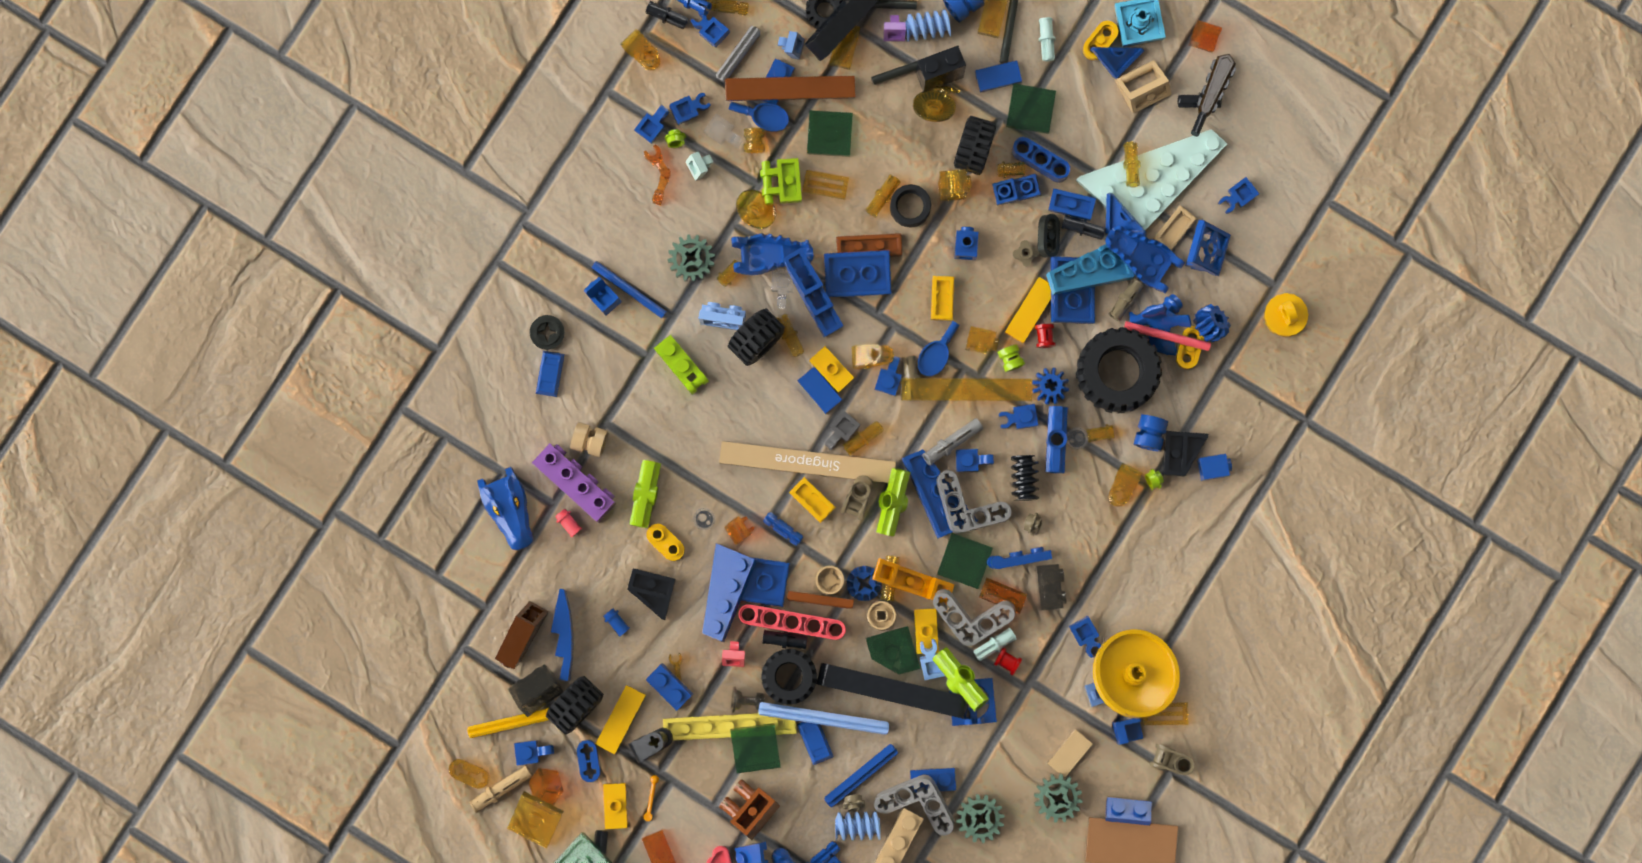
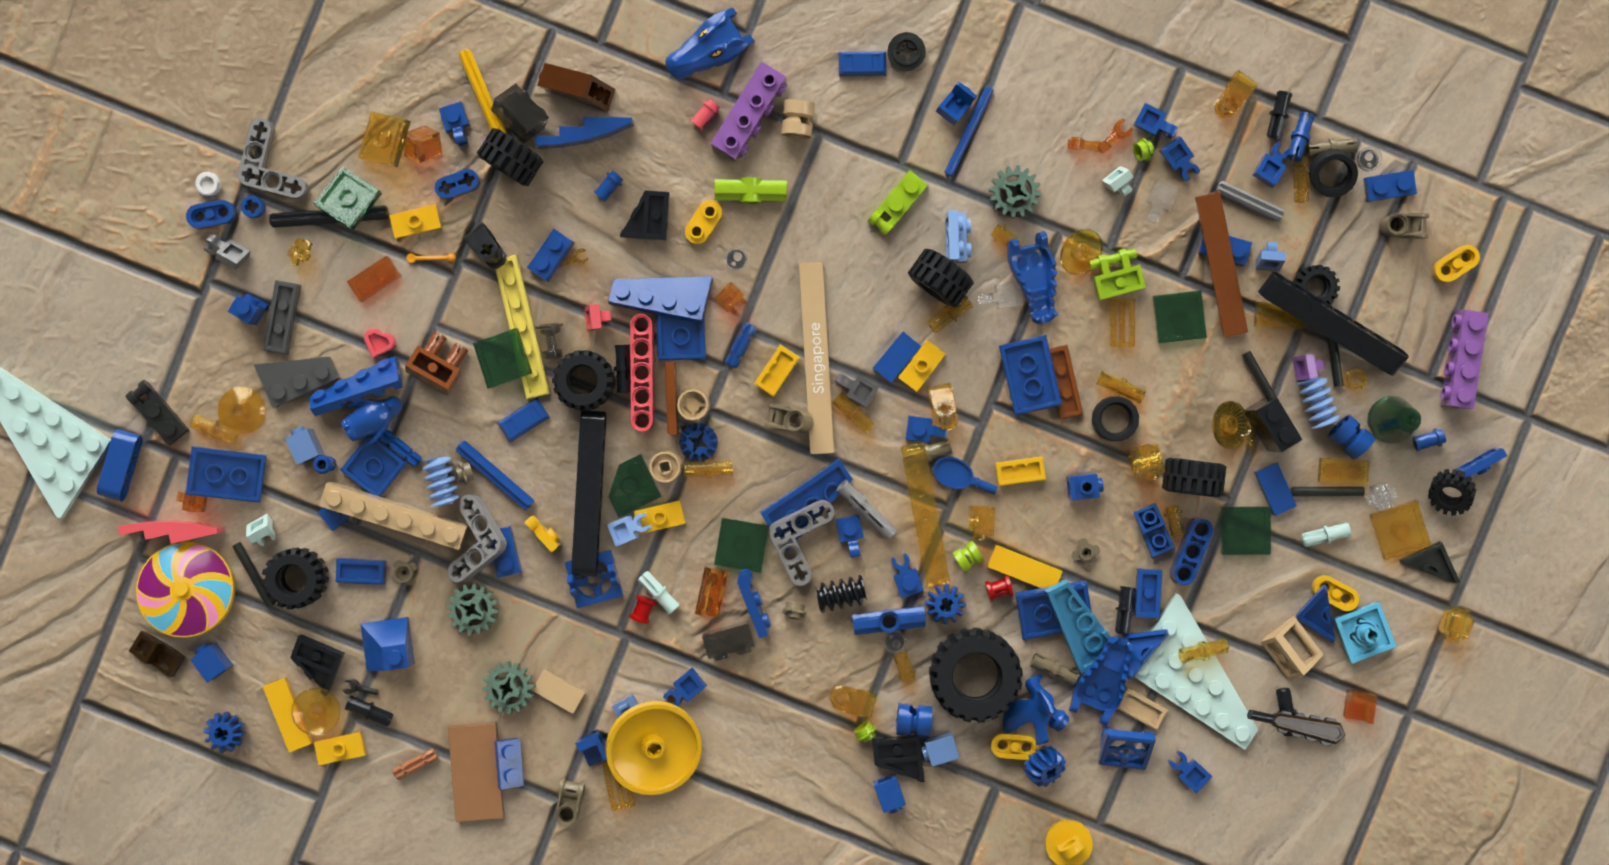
camera: 80 degrees right, 5 degrees up
(466, 778) = (415, 59): clear yellow beam -> none
(493, 793) = (415, 101): tan pin -> none
(620, 719) = (507, 209): yellow tile -> none
(754, 140) = (1157, 236): clear yellow wheel -> none
(764, 115) = (1186, 244): blue piece -> none
(812, 292) = (1001, 329): blue slope -> none
(823, 718) = (546, 420): light blue axle -> none
(893, 502) = (790, 457): lime piece -> none
(910, 580) = (708, 494): light orange slope -> none
(926, 736) = (548, 537): none -> yellow plate
(960, 679) = (611, 563): lime piece -> none
(975, 624) = (674, 567): light grey beam -> none
(1048, 235) = (1109, 574): pearl dark grey plate -> none
(1176, 338) = (1022, 721): coral bar -> none
(1181, 414) = (940, 749): none -> medium blue brick

